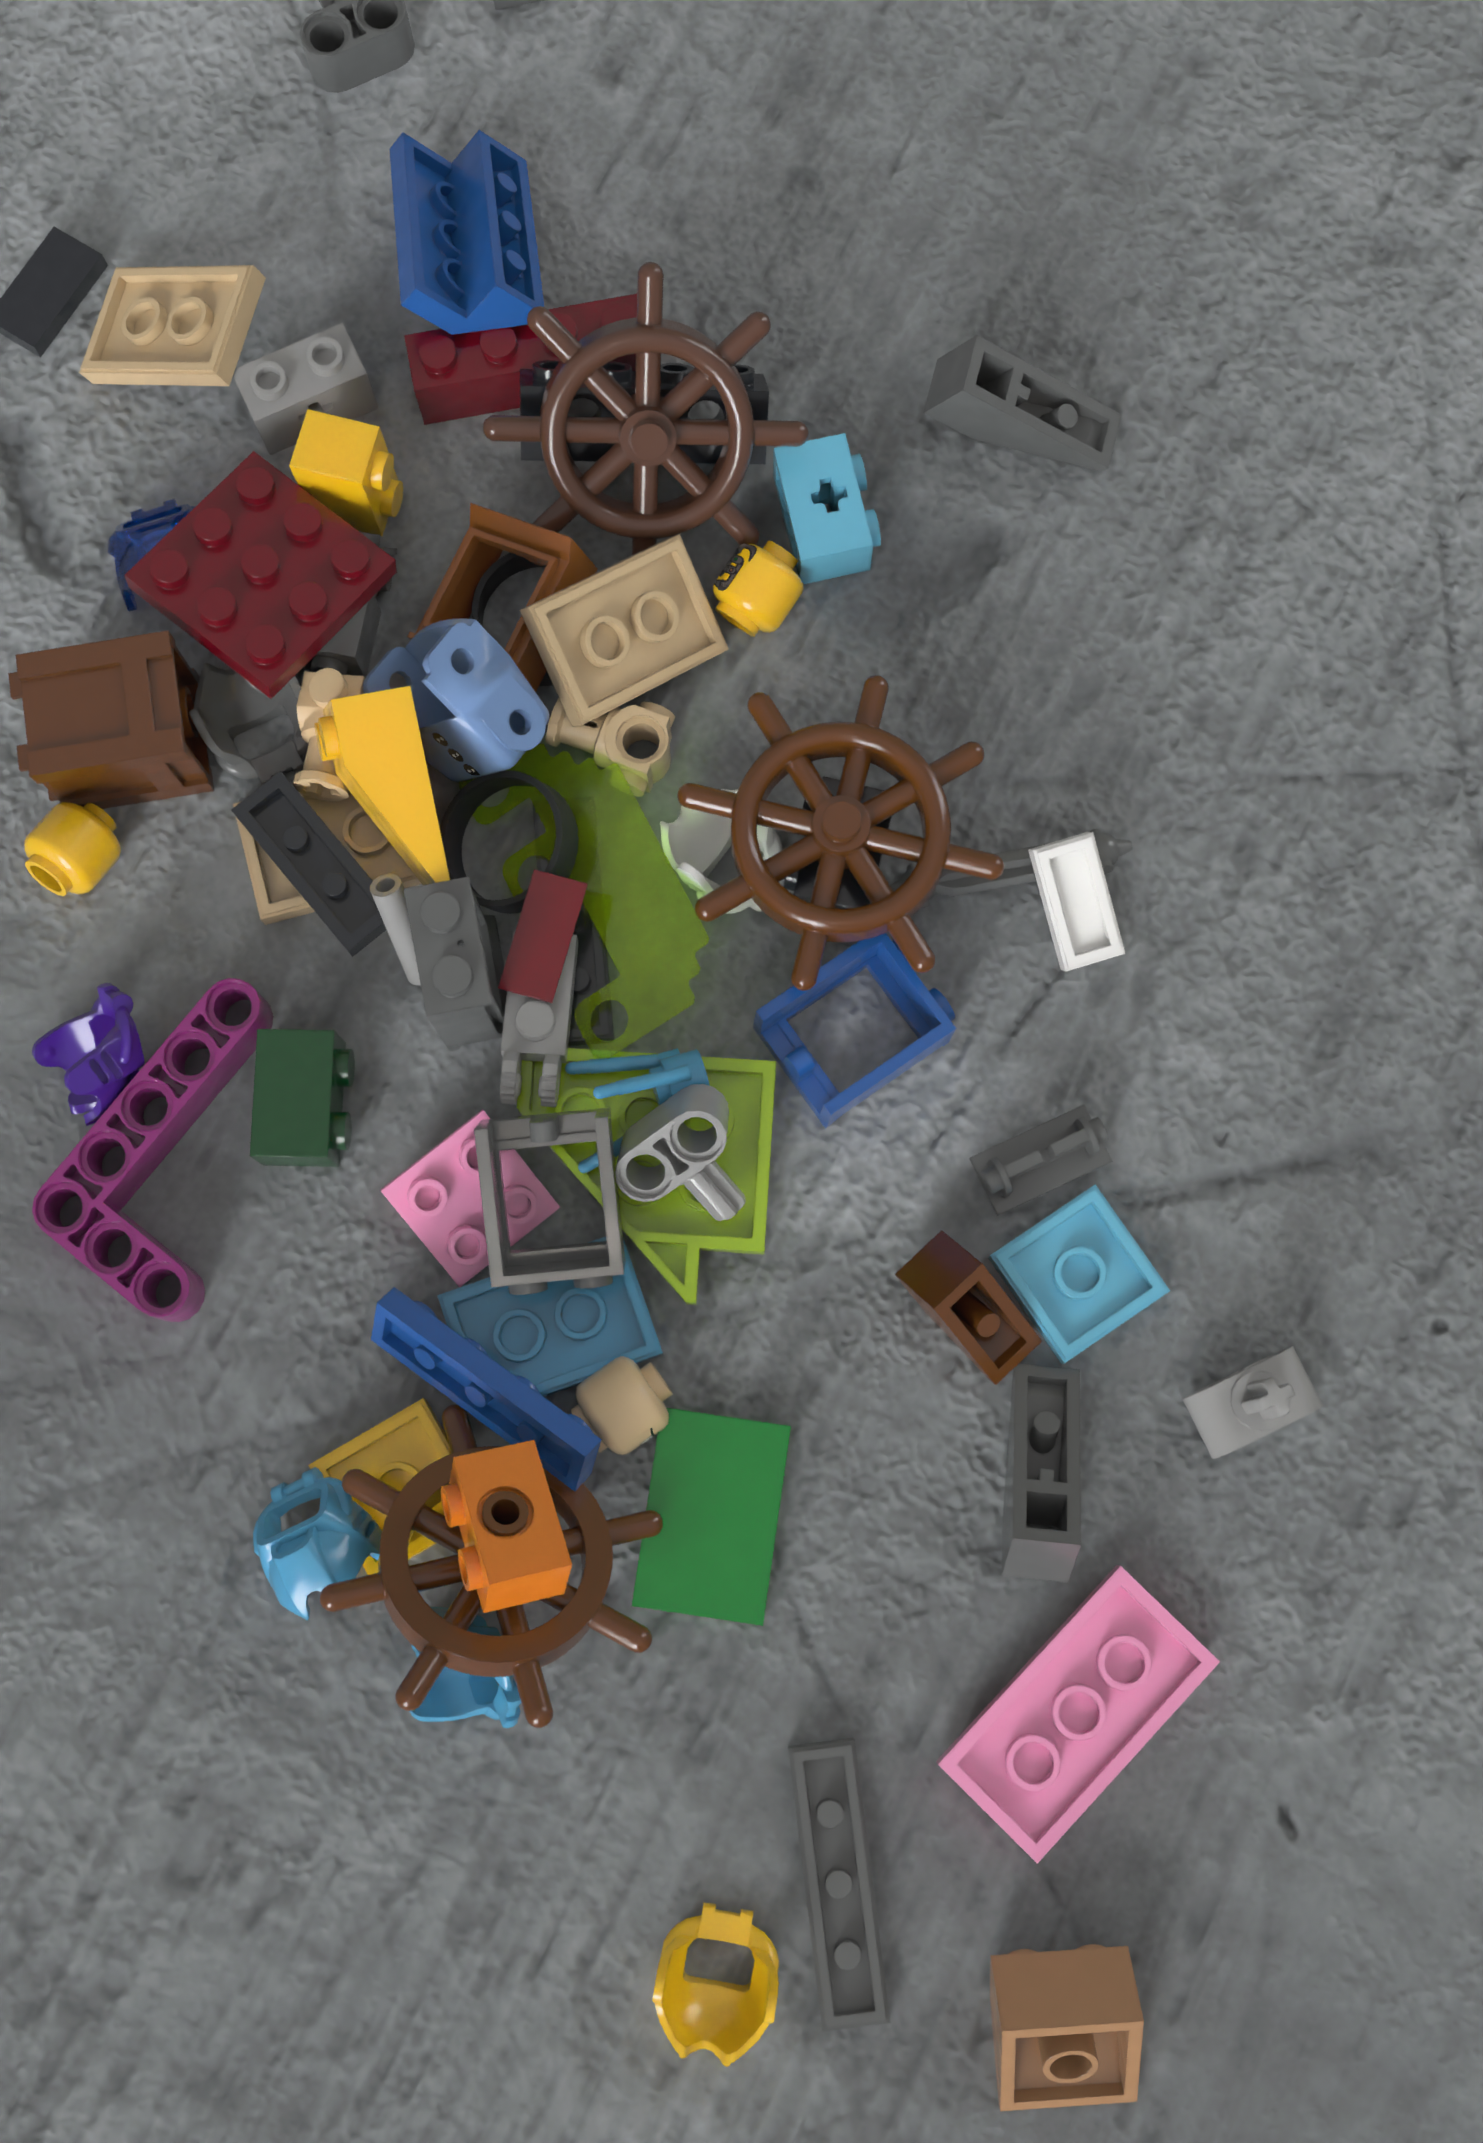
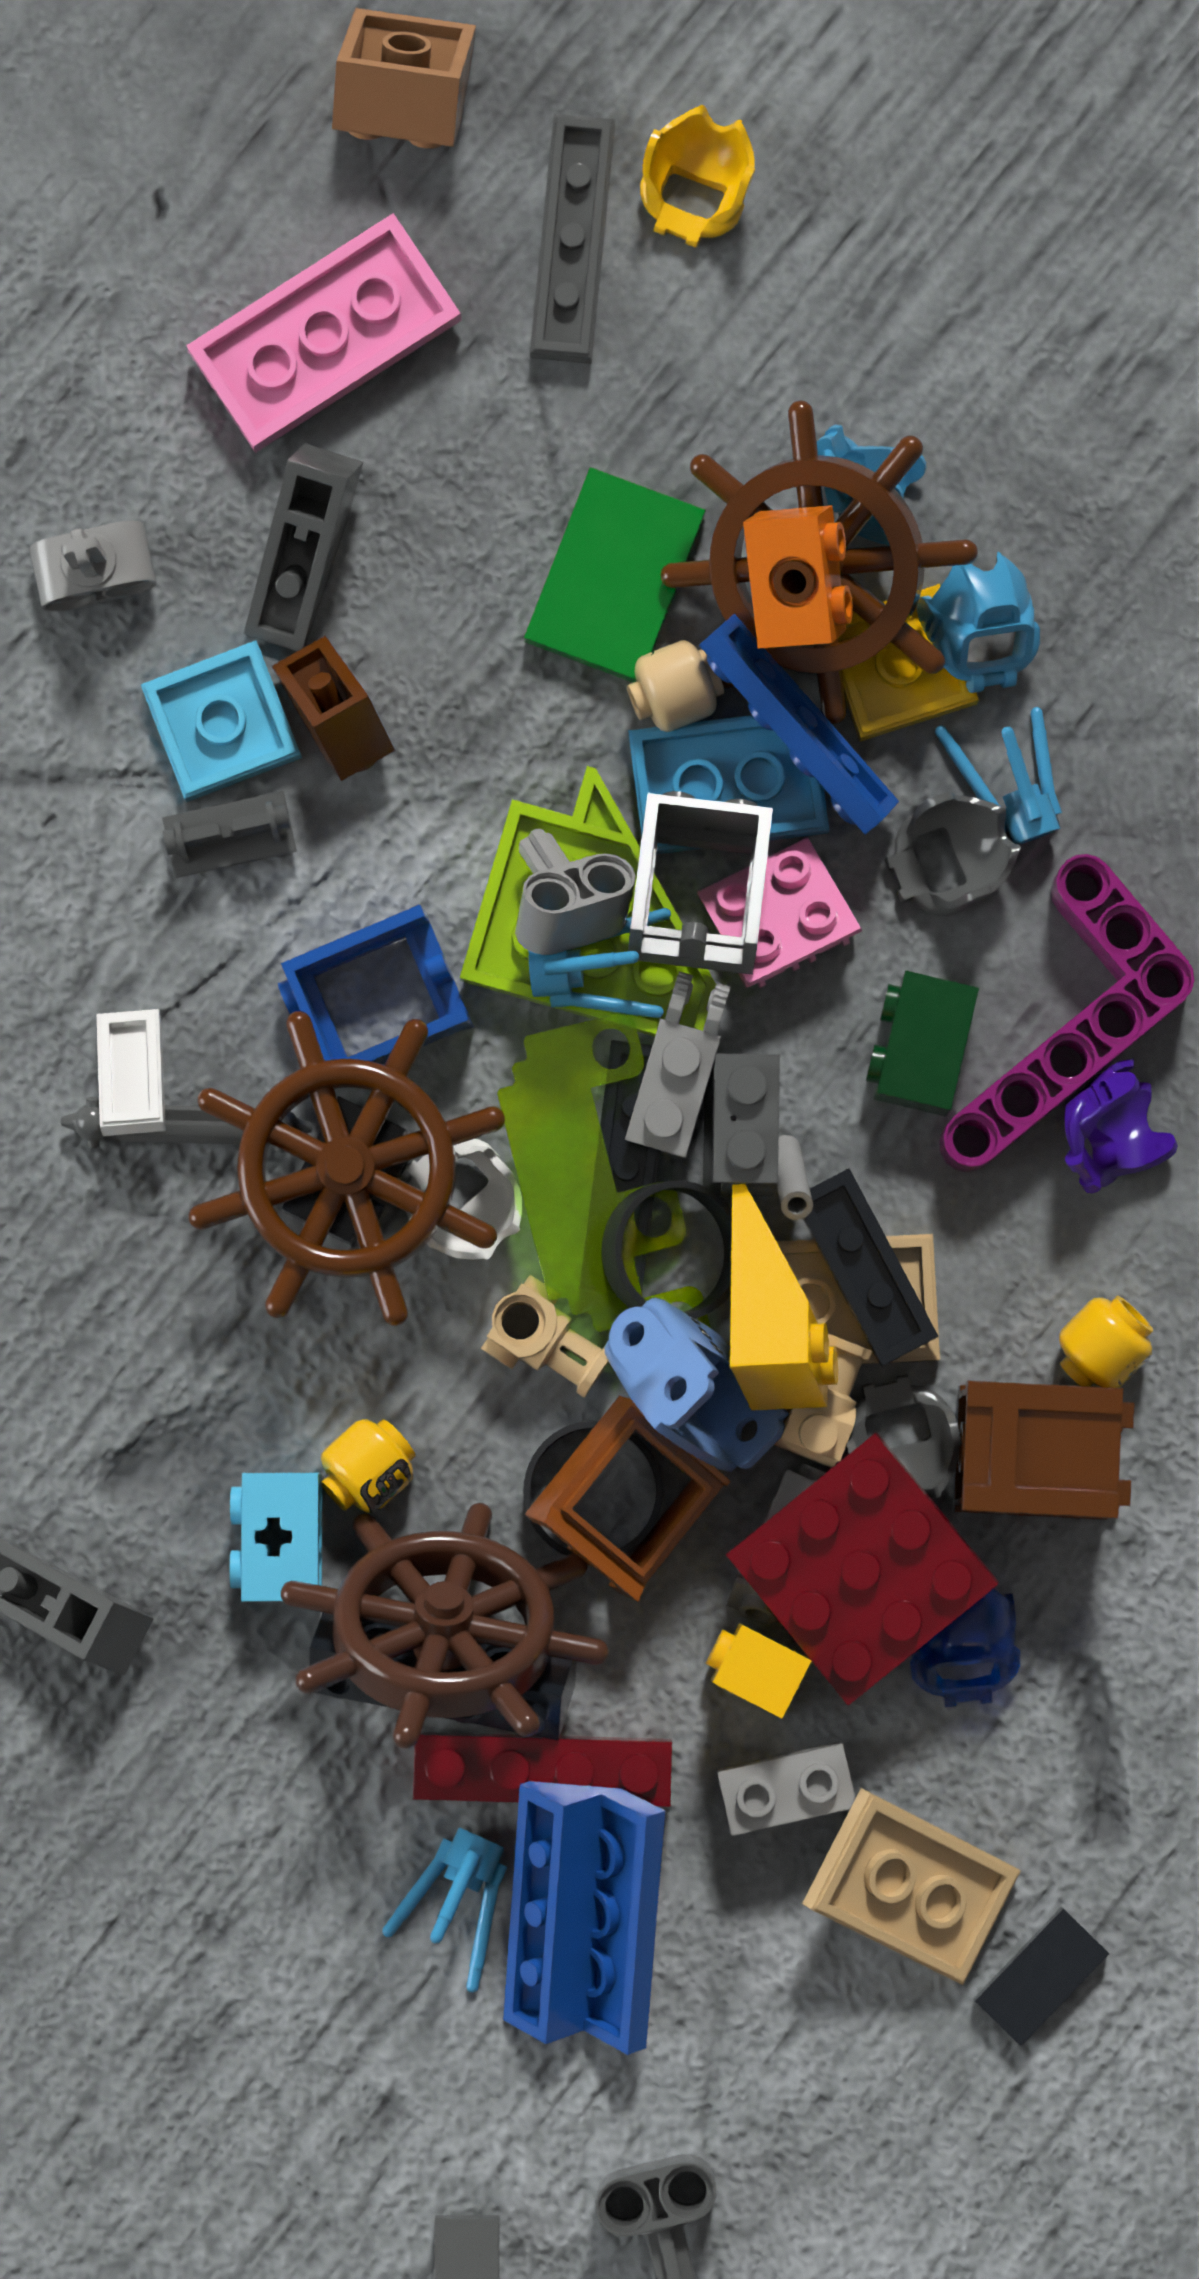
camera: 165 degrees left, 5 degrees up
(235, 1361) = (1028, 810): none -> dark azure plant
(280, 1308) = (976, 842): none -> dark grey helmet
(543, 936) = (656, 1136): dark red sticker -> none
(581, 272) = (469, 1864): none -> dark azure plant
(624, 630) = (510, 1435): tan tile -> none

